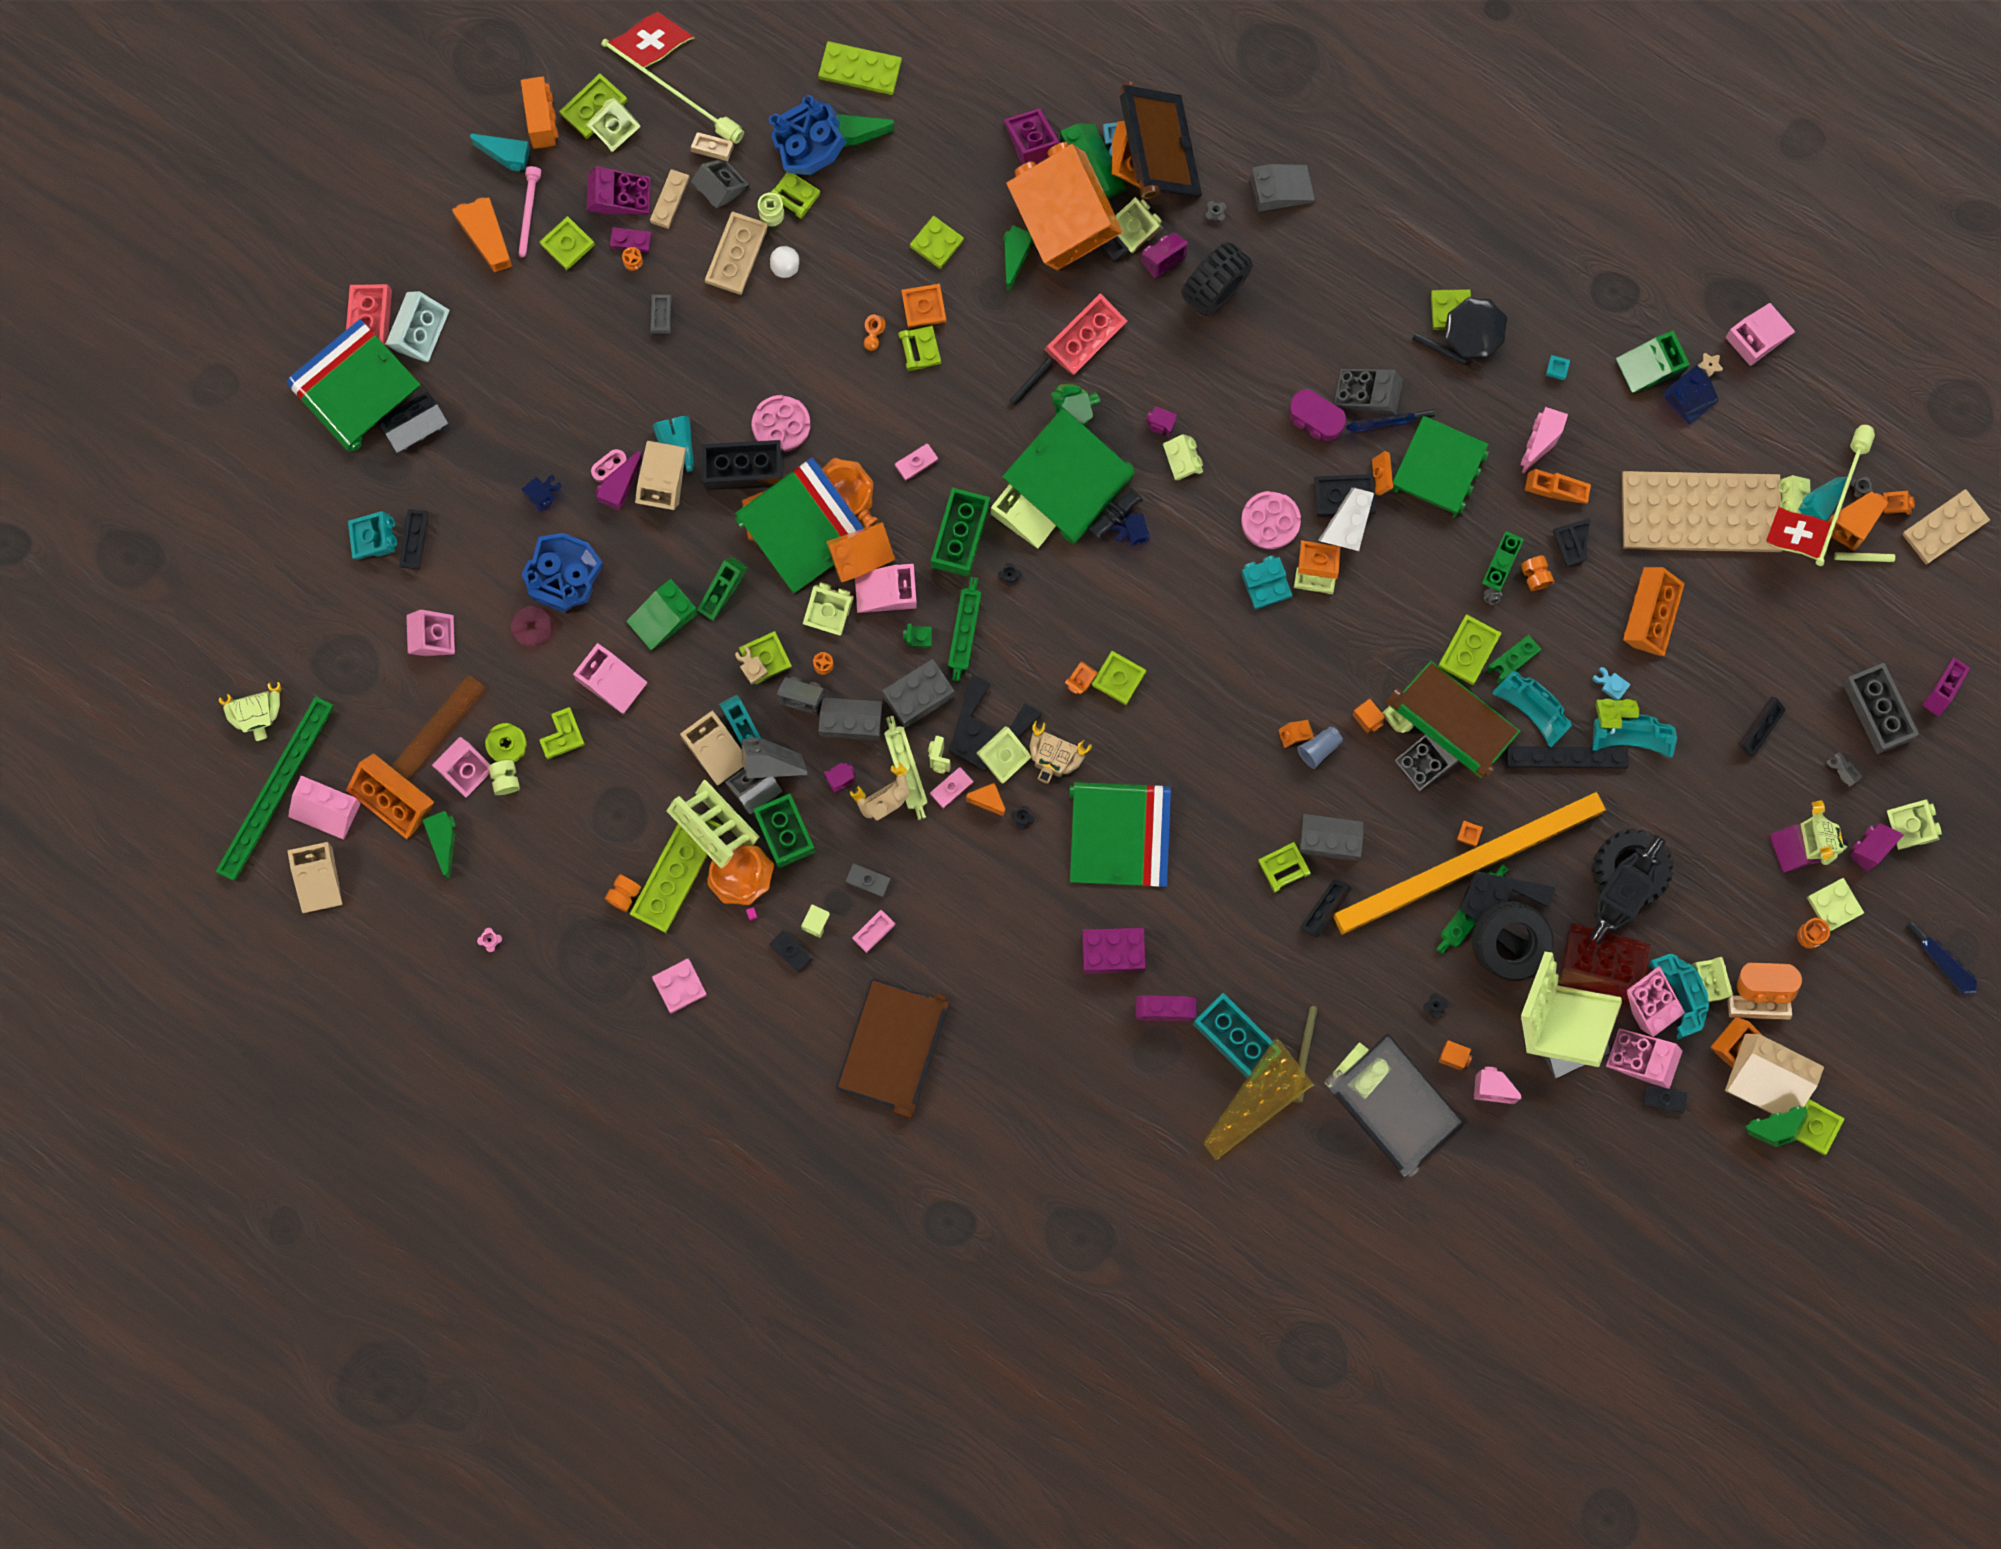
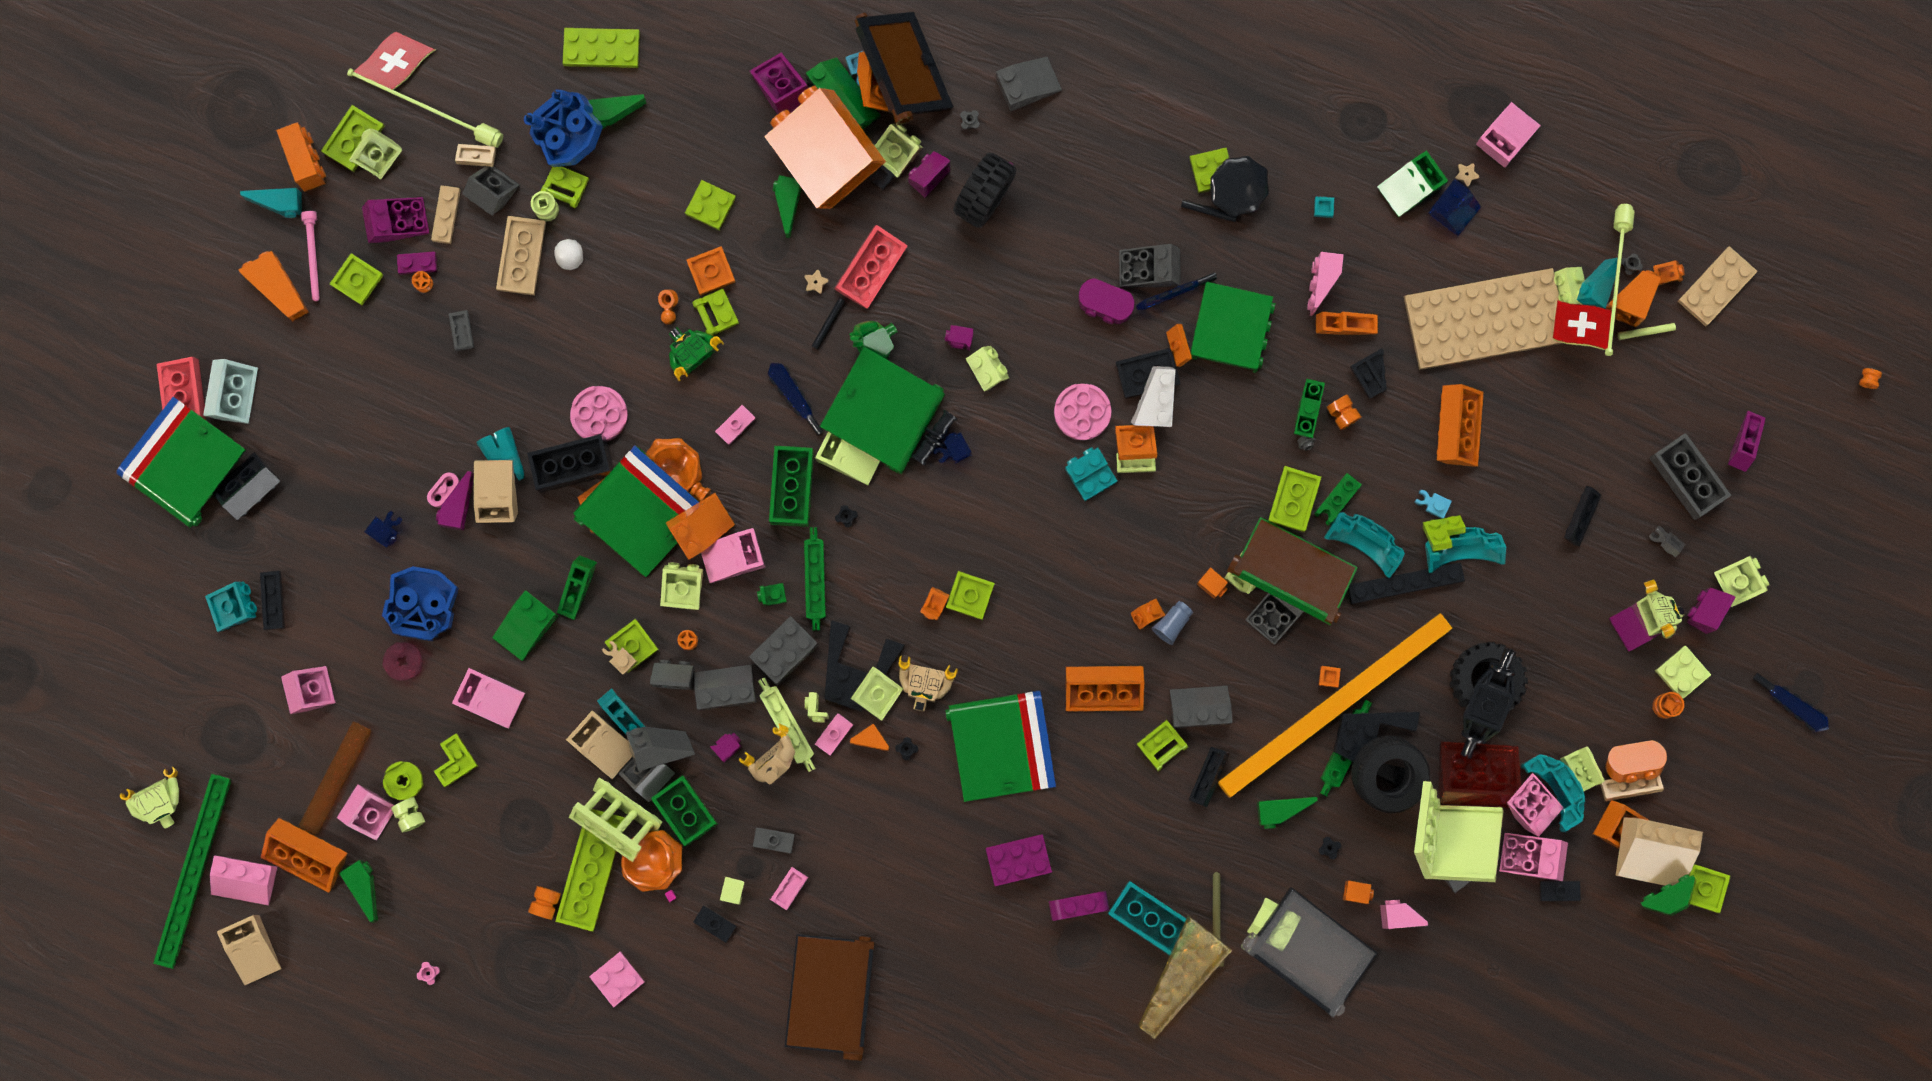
camera: 10 degrees left, 5 degrees up
(887, 378) = (690, 350): none -> green torso
(977, 435) = (787, 386): none -> clear blue sword
(1027, 343) = (818, 286): none -> tan plate
(1236, 798) = (1105, 688): none -> orange slope
(1390, 957) = (1278, 811): none -> green slope

